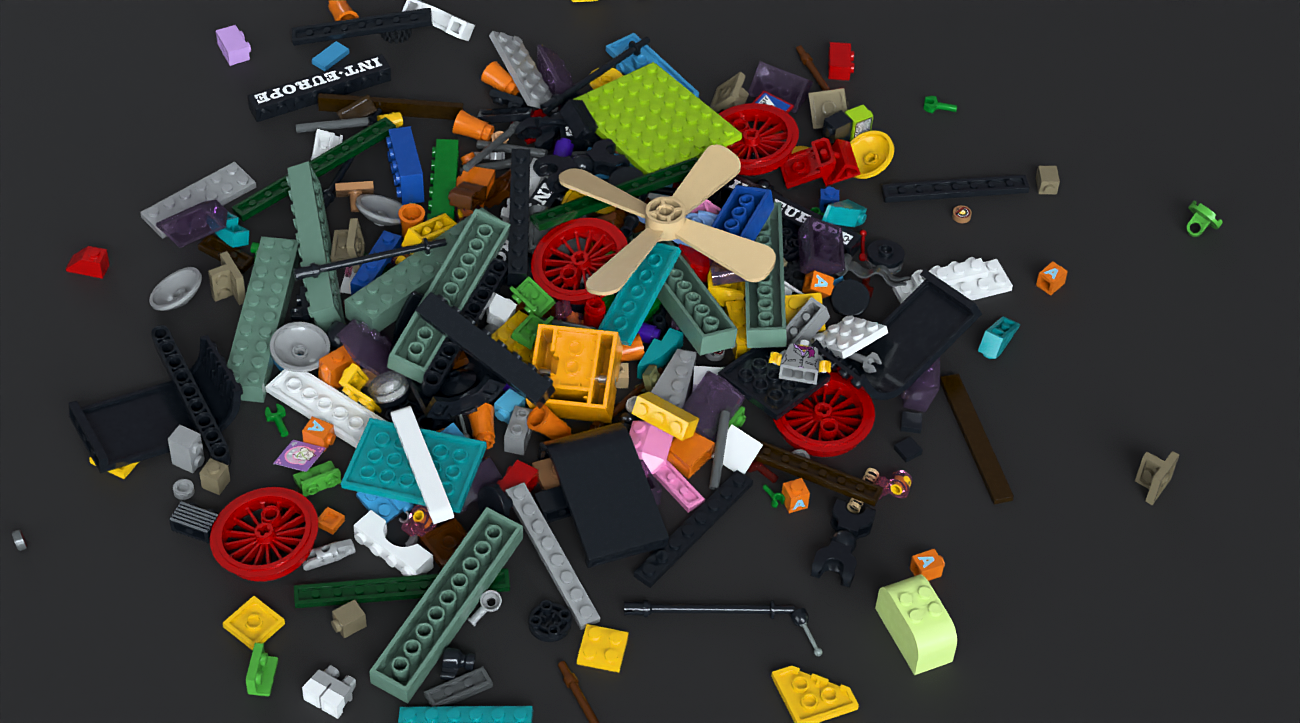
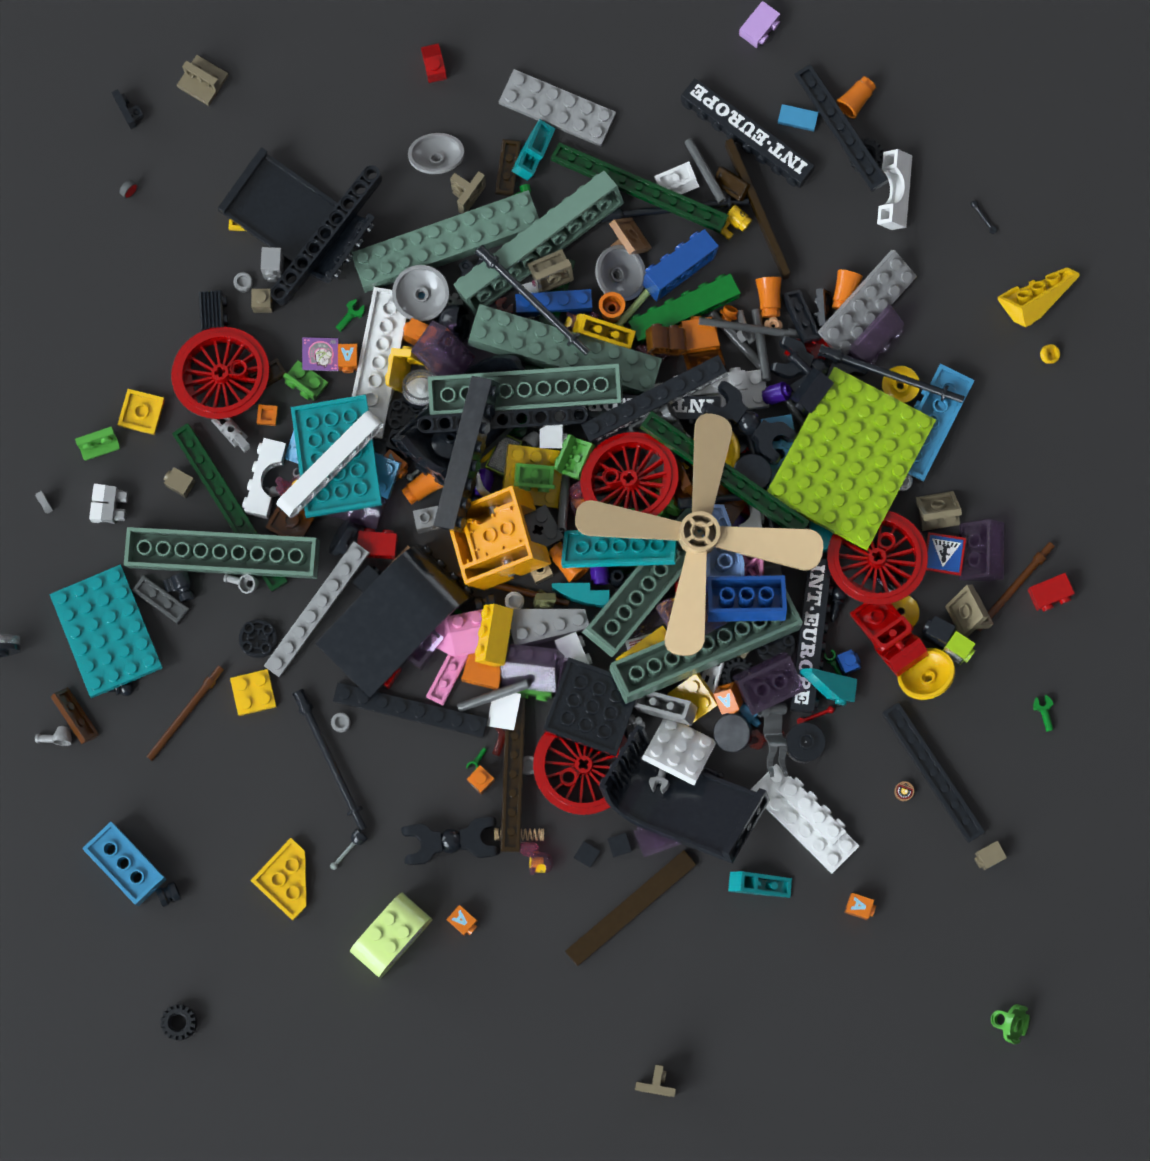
camera: 70 degrees right, 30 degrees up
(194, 223) = (512, 125): clear purple slope -> none
(547, 423) = (443, 543): orange plant -> none
(675, 588) = (340, 722): none -> light grey tile
(800, 363) = (608, 724): light grey torso -> none

